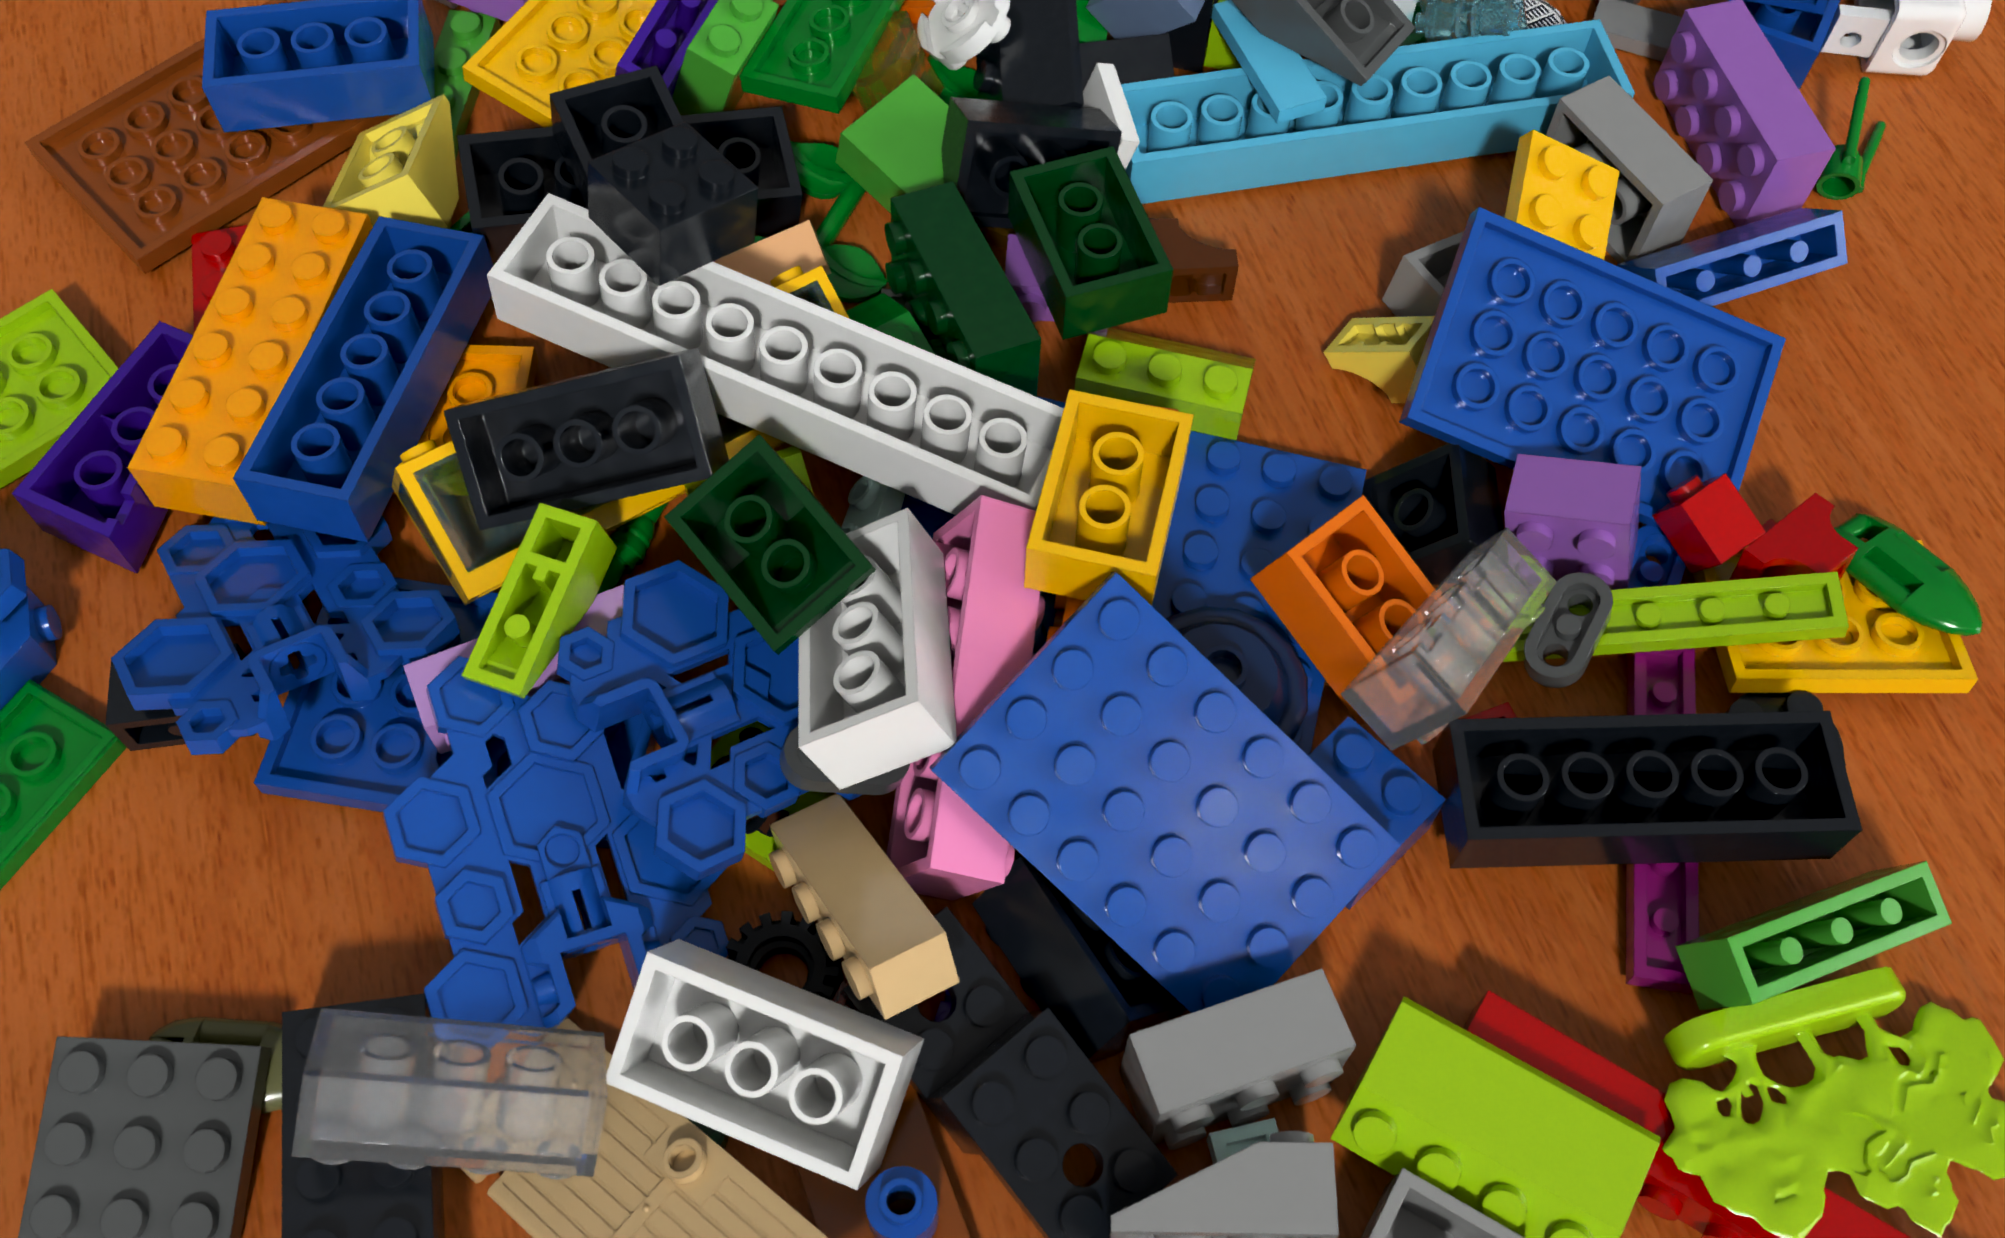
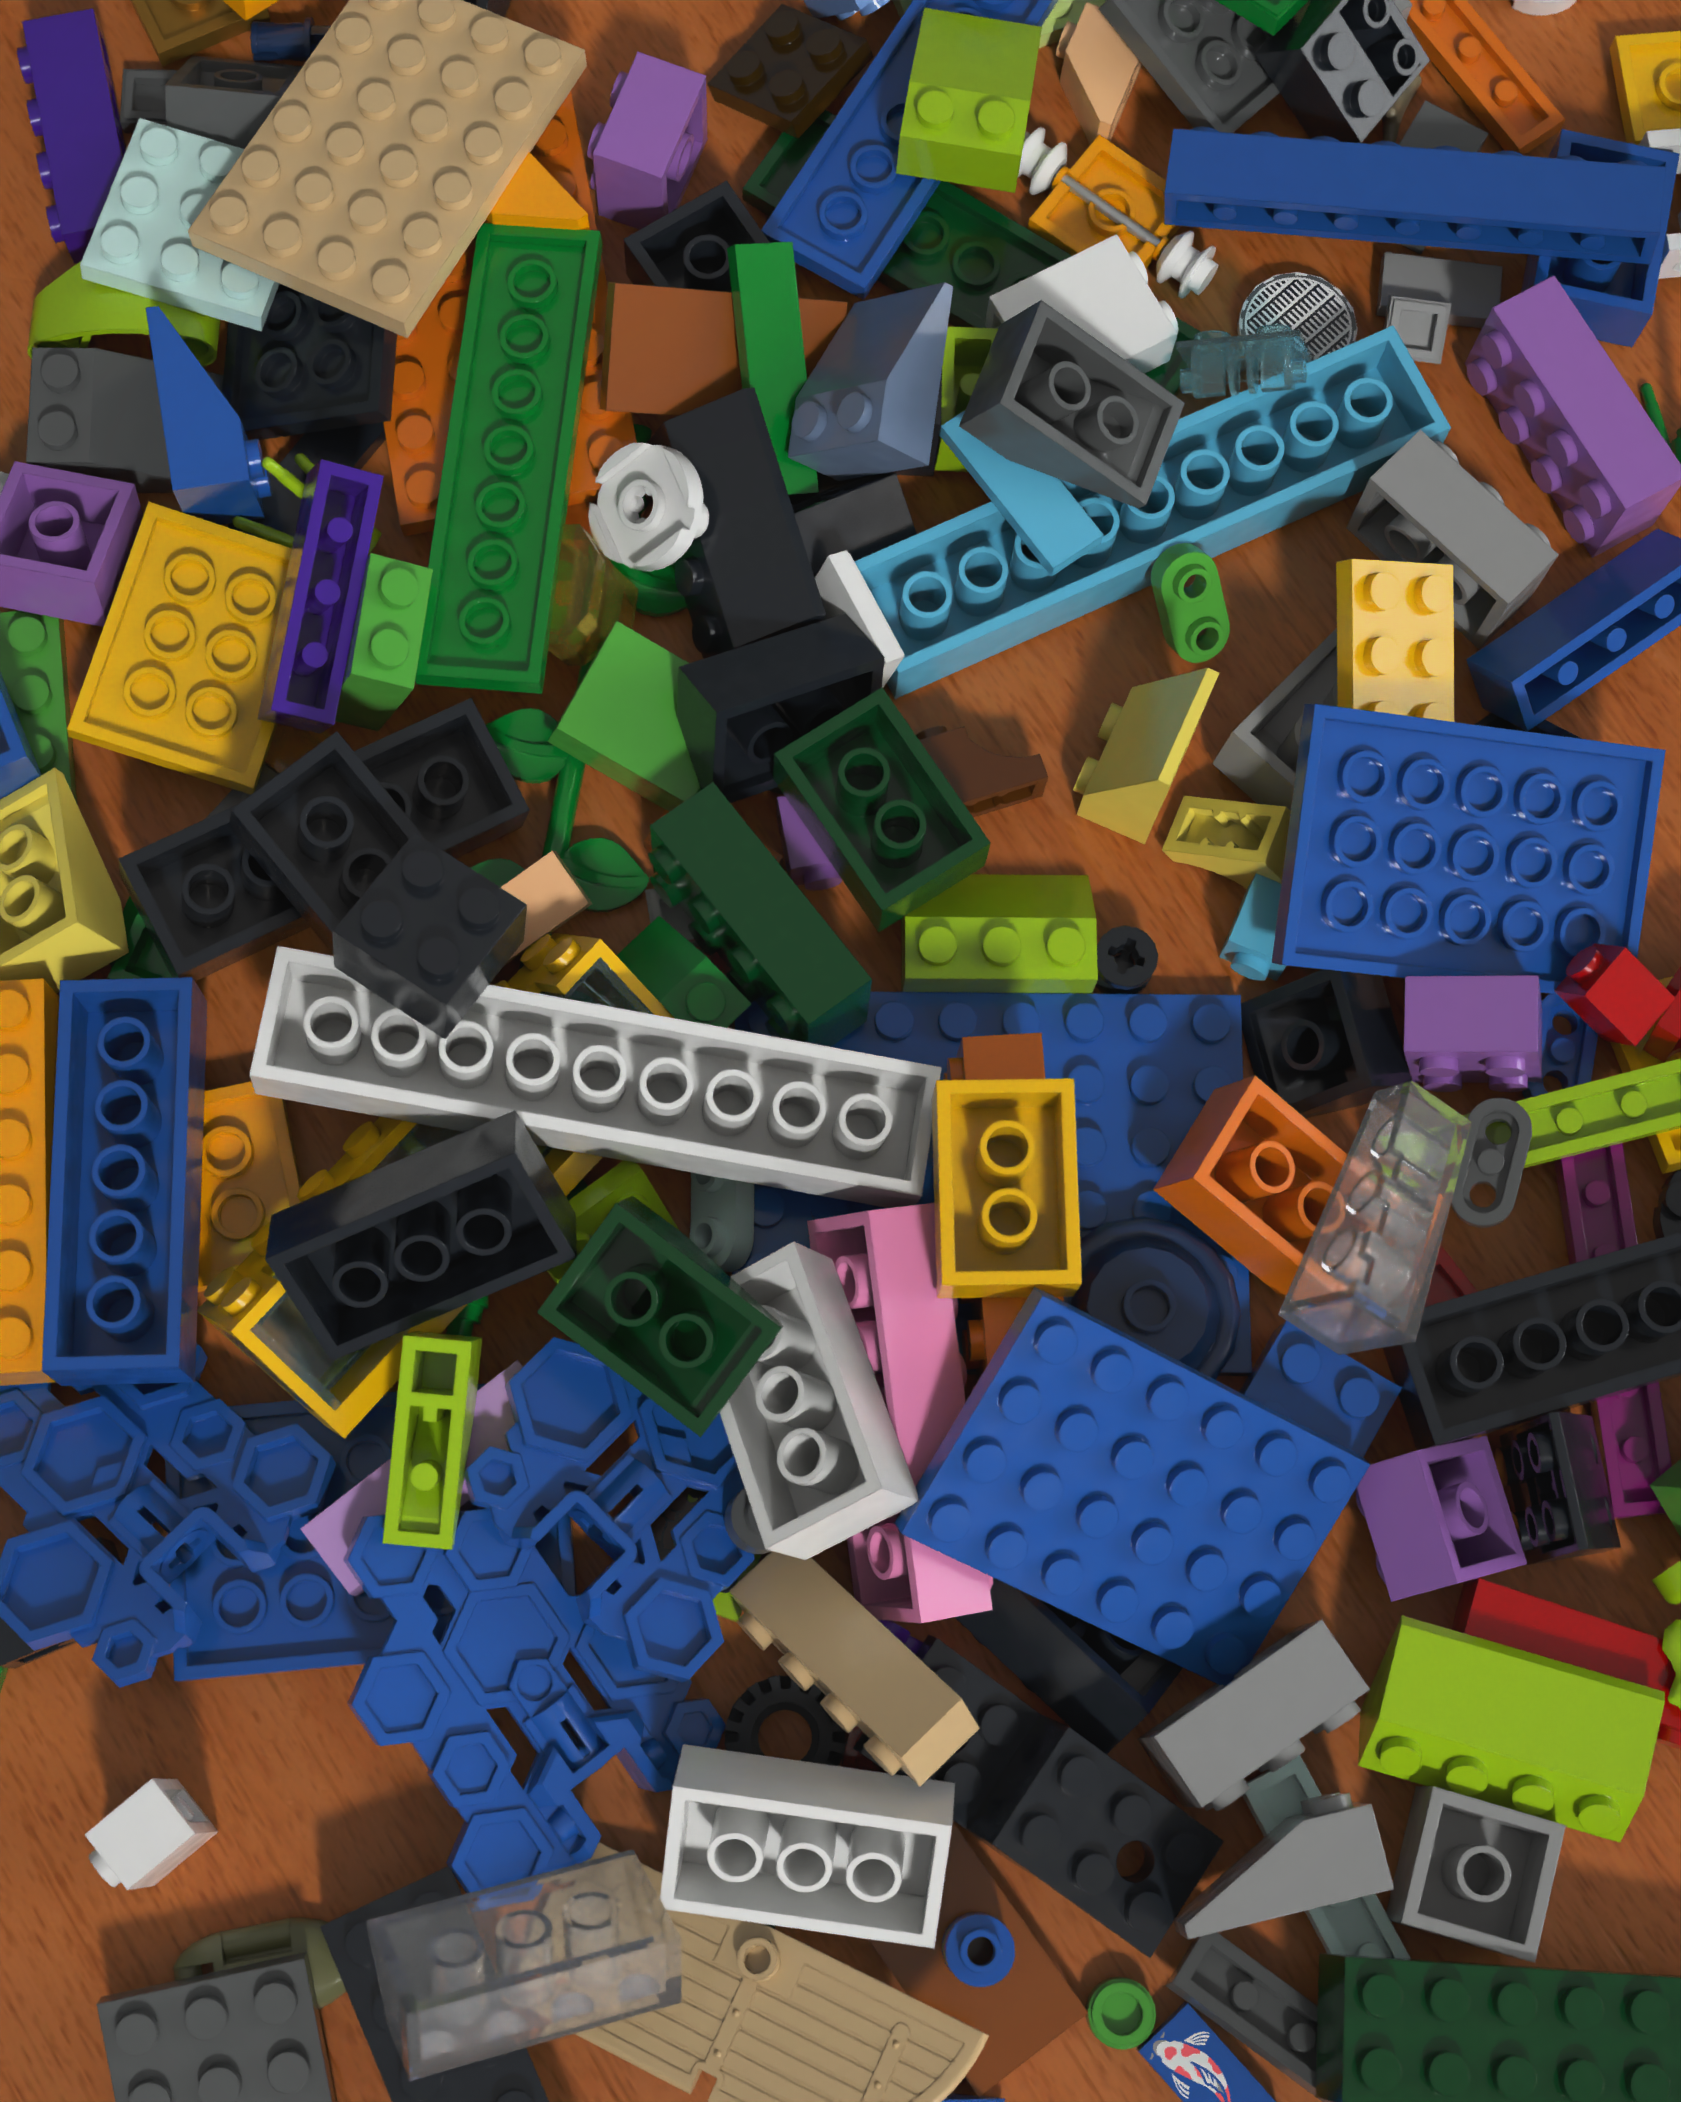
camera: 20 degrees left, 15 degrees up
(169, 897) = (148, 1835): none -> white brick
(1279, 407) = (1118, 973): none -> black wheel
(1328, 268) = (1142, 752): none -> light yellow slope
(1382, 434) = (1253, 932): none -> medium azure brick
(1386, 178) = (1192, 608): none -> bright green plate
(1458, 922) = (1438, 1518): none -> medium lavender brick
(1582, 927) = (1557, 1488): none -> black slope
(1626, 40) = (1420, 325): none -> light grey tile

